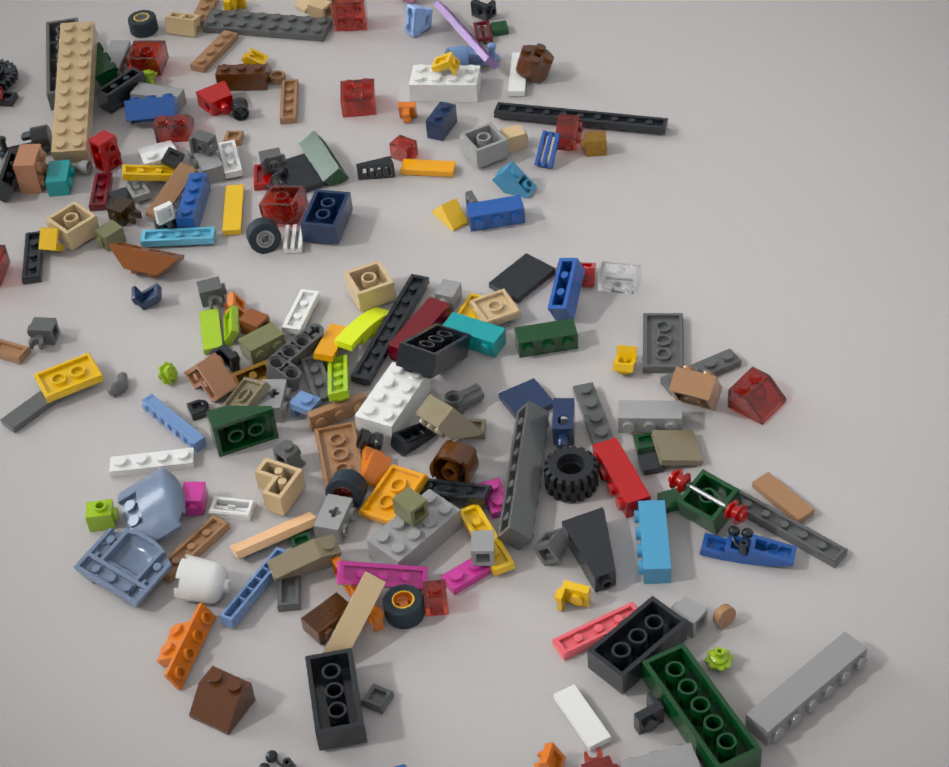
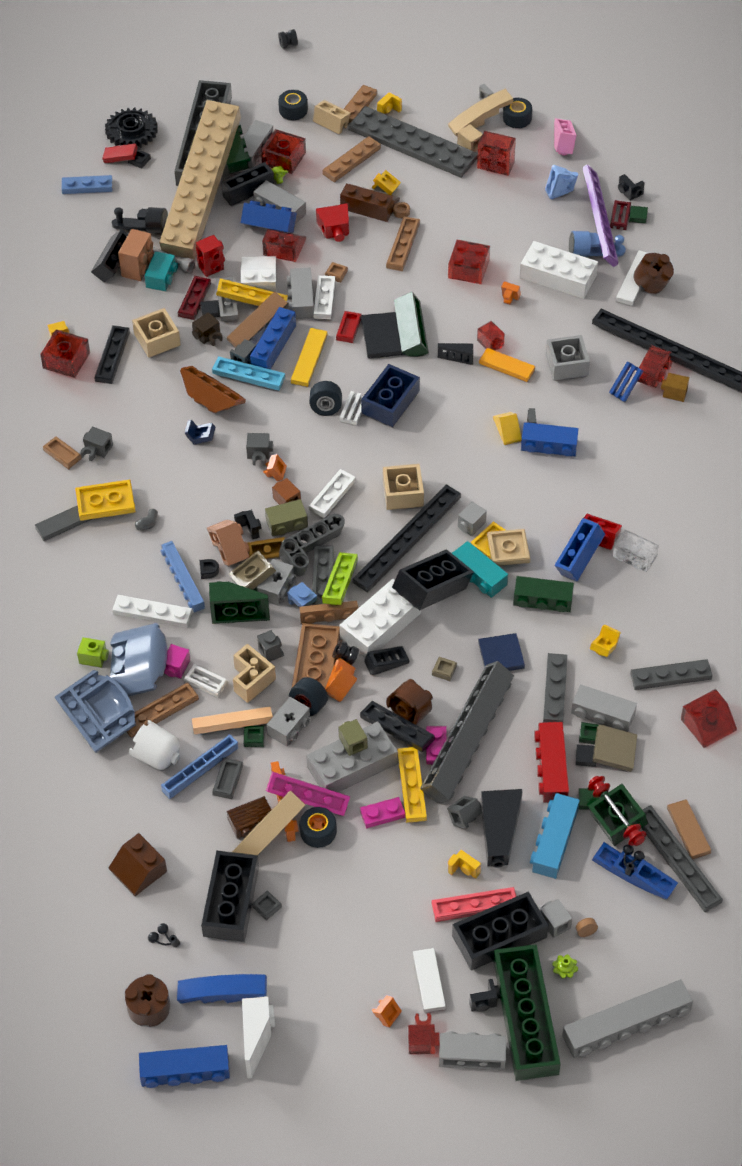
camera: 15 degrees right, 10 degrees up
(49, 239) = (130, 342): yellow panel -> none
(109, 233) = (186, 353): olive brick -> none
(164, 213) = (241, 348): white tile -> none
(167, 373) = (193, 523): lime plant -> none
(172, 158) = (268, 285): black tile -> none
(184, 645) = (124, 802): orange bracket -> none
(203, 143) = (302, 276): dark grey brick -> none
(210, 329) = (246, 488): lime tile -> none
(231, 325) = (264, 488): lime tile -> none
(240, 109) = (352, 240): black wheel -> none
(271, 160) = (360, 314): dark grey brick -> none
(280, 171) = (360, 343): black piece -> none
(284, 204) = (355, 369): clear red brick -> none
(305, 558) = (249, 754): dark tan slope -> none
(326, 348) = (347, 537): light orange tile -> none
(361, 329) = (380, 530): neon yellow slope -> none
(396, 479) = (350, 706): light orange tile -> none
(429, 313) = (447, 536): dark red brick -> none
(435, 598) = (347, 828): clear red brick -> none
(441, 121) = (538, 314): dark blue brick -> none
(444, 62) = (564, 251): yellow bracket -> none
(445, 420) = (417, 657): dark tan slope -> none
(464, 398) = (439, 636): dark grey piece -> none
(483, 548) = (403, 795): light grey brick -> none
(514, 181) = (581, 408): dark azure slope -> none
(516, 137) = (600, 356): tan brick -> none
(522, 277) = (547, 519): black tile -> none
(563, 429) = (522, 692): dark blue torso -> none
(571, 474) = (505, 758): black tyre -> none
(662, 342) = (649, 632): dark grey tile -> none
(695, 387) = (657, 697): medium nougat brick -> none

